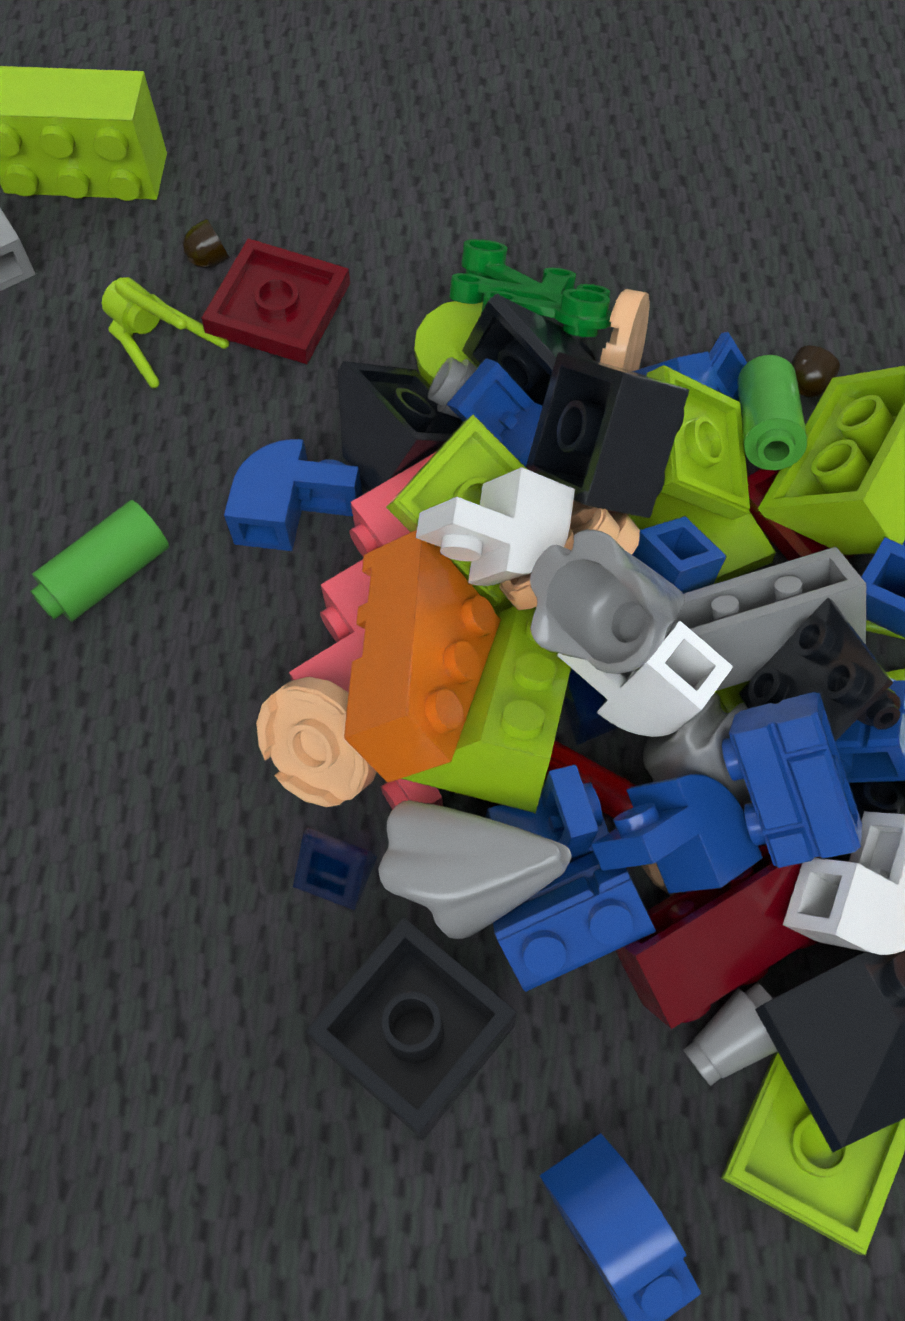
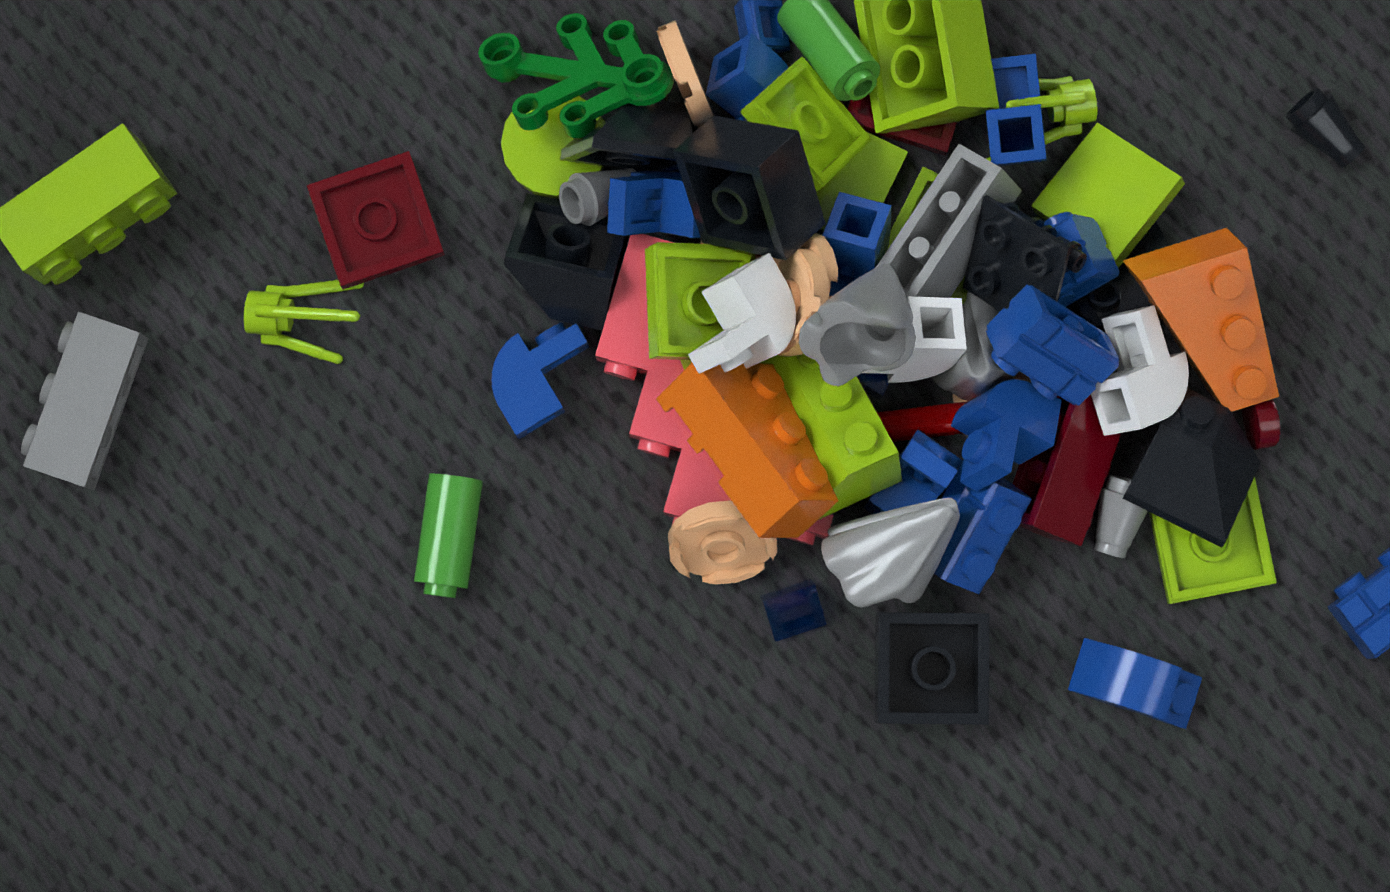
camera: 40 degrees left, 20 degrees up
(204, 246) = (268, 212): dark brown hinge -> none

